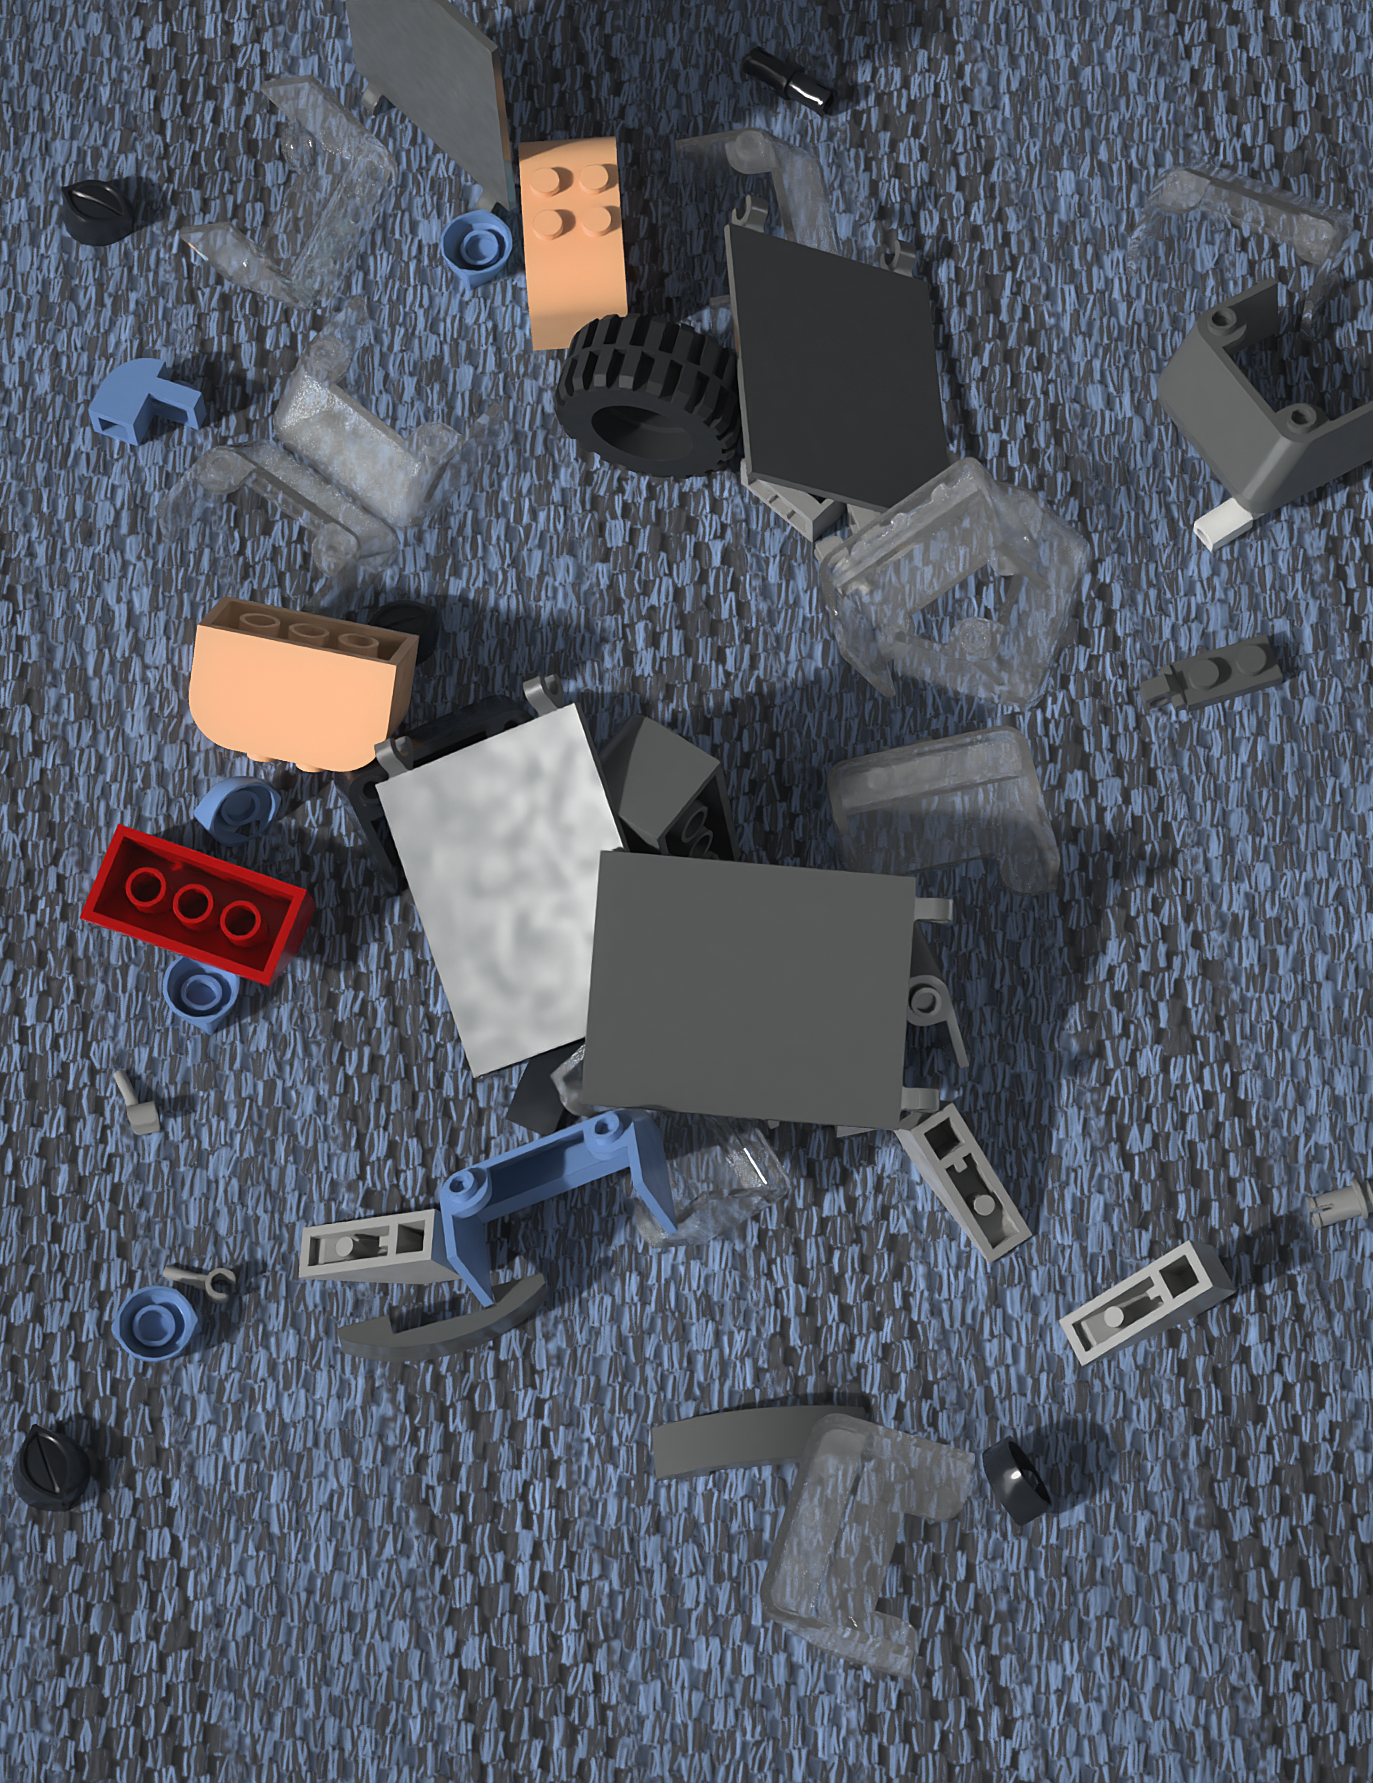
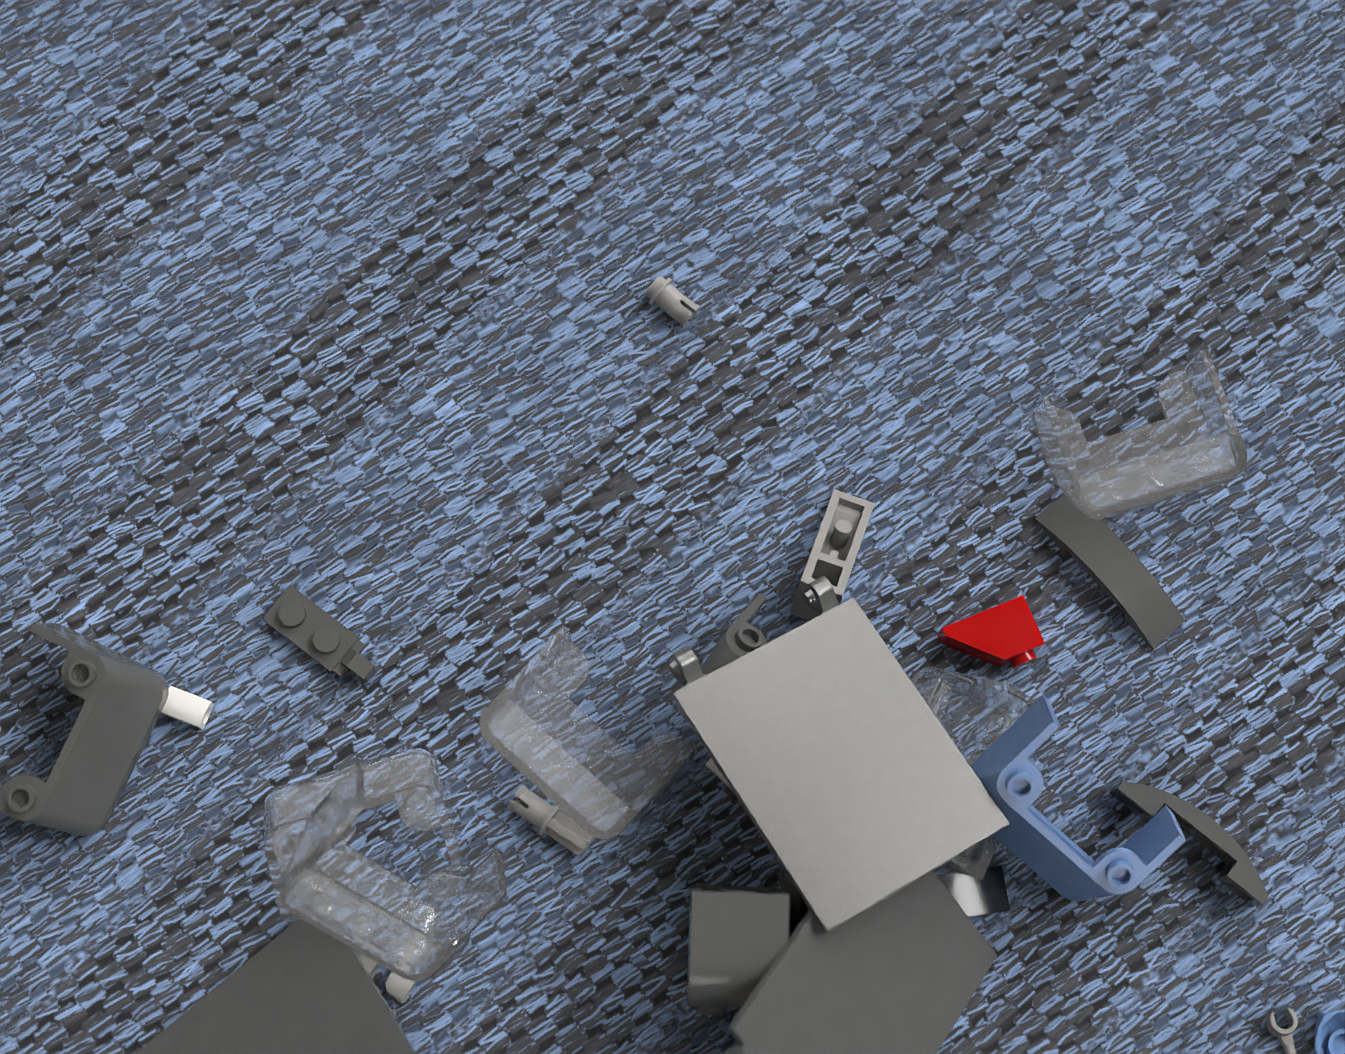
camera: 130 degrees left, 10 degrees up
(378, 1249) = (1180, 926): light grey slope -> none
(771, 1278) = (997, 634): none -> red slope
(1003, 1469) = (1028, 377): black hat -> none
(1148, 1302) = (832, 376): light grey slope -> none

